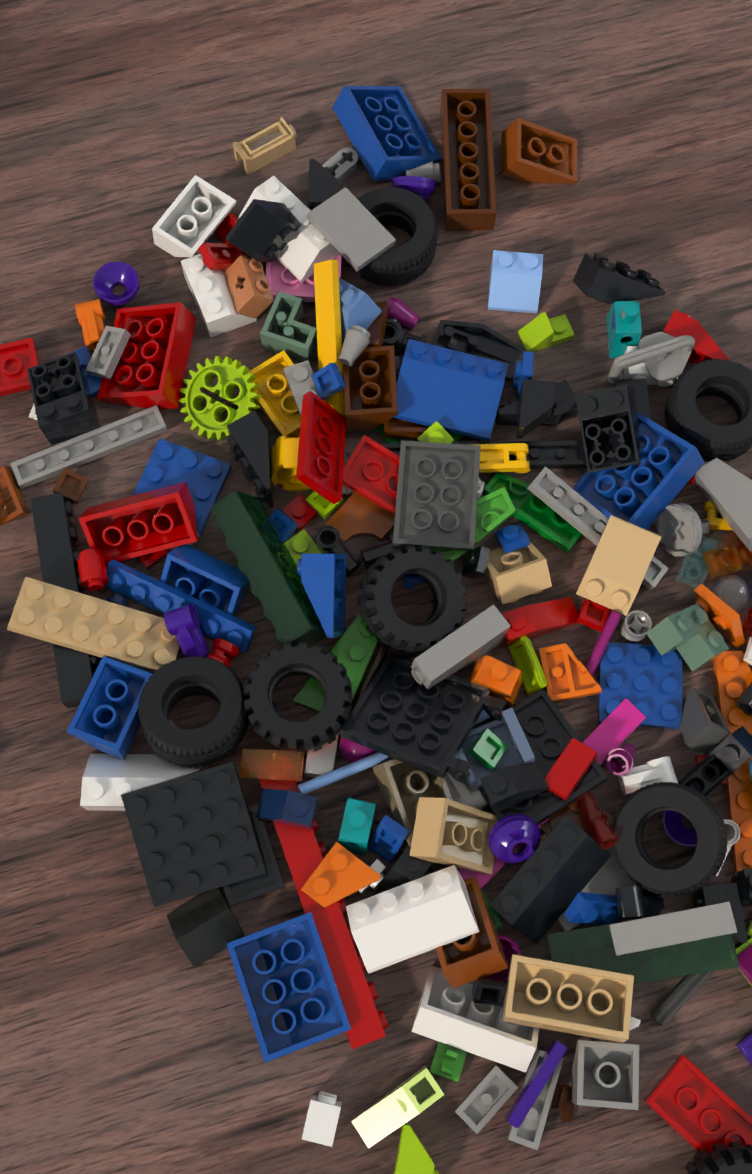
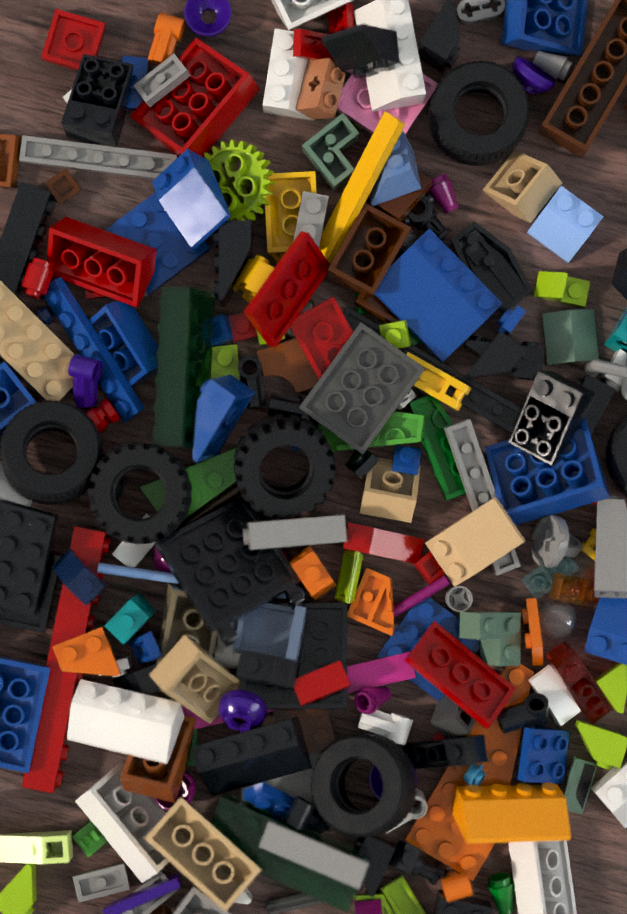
camera: 30 degrees right, 15 degrees up
(191, 424) = (192, 197): none -> slope
(272, 764) = (87, 535): clear orange slope -> none
(328, 381) = (333, 228): blue plate -> none
(351, 229) = (440, 95): light grey tile -> none
(354, 343) = (375, 208): light grey cone -> none
(461, 272) = (523, 185): none -> tan slope
(488, 749) = (266, 627): green plate -> none
(489, 991) = (150, 810): black slope -> none
(578, 364) = (570, 336): none -> sand green slope
(596, 821) = (315, 736): clear red pin -> none
(685, 686) = (460, 674): none -> red plate

